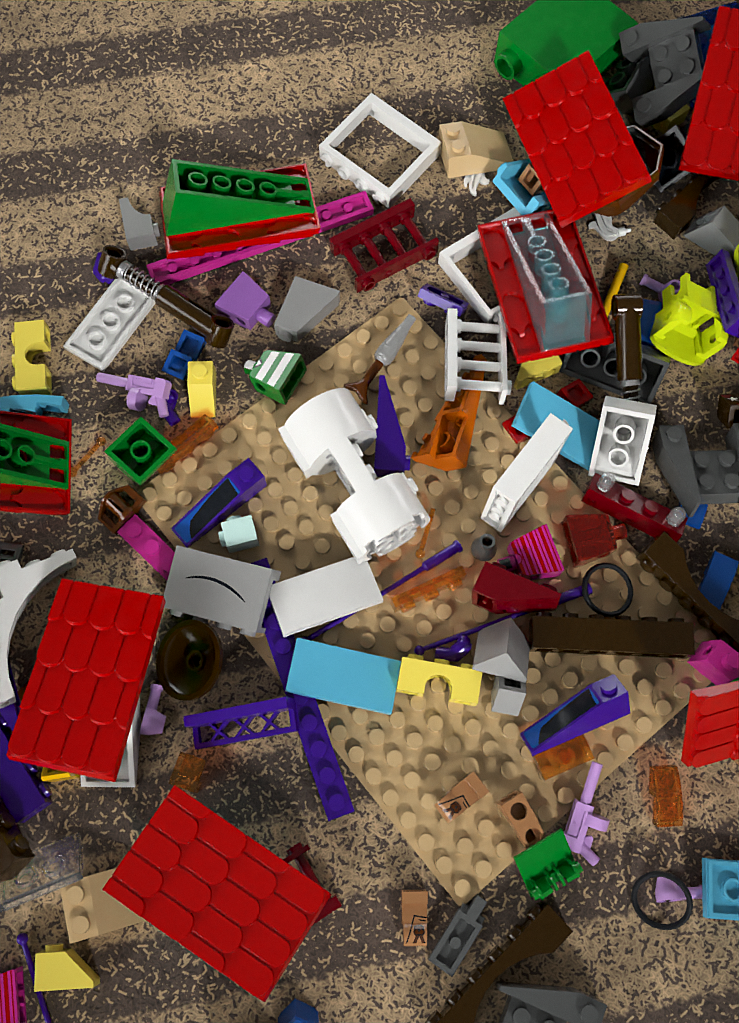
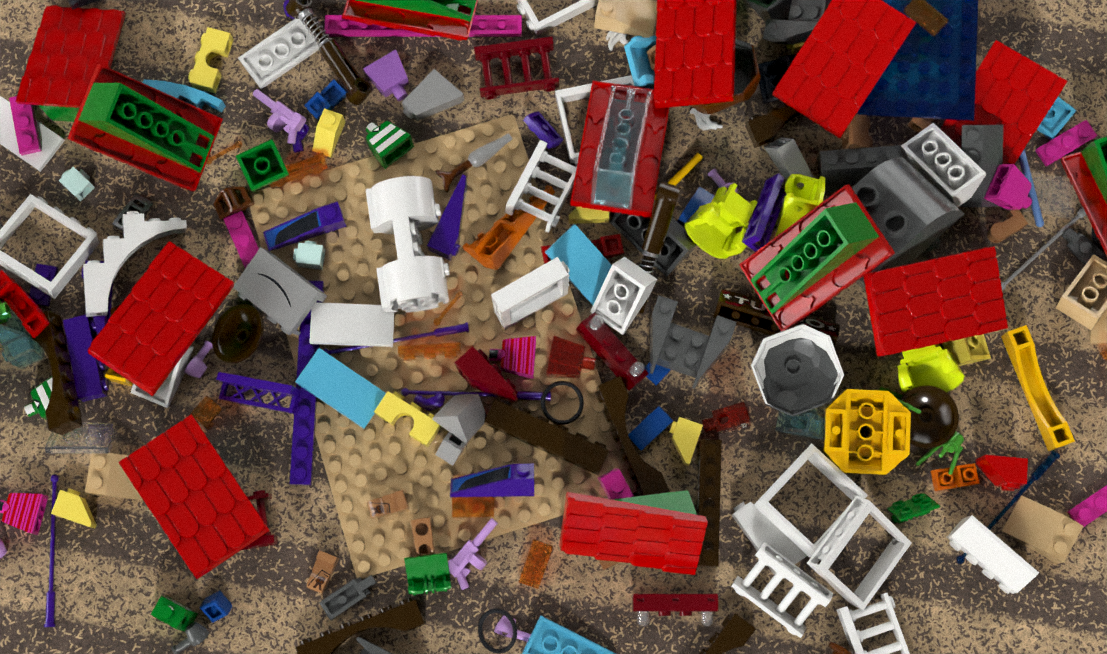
camera: 25 degrees right, 5 degrees up
(483, 552) = (485, 340): dark grey cone -> none

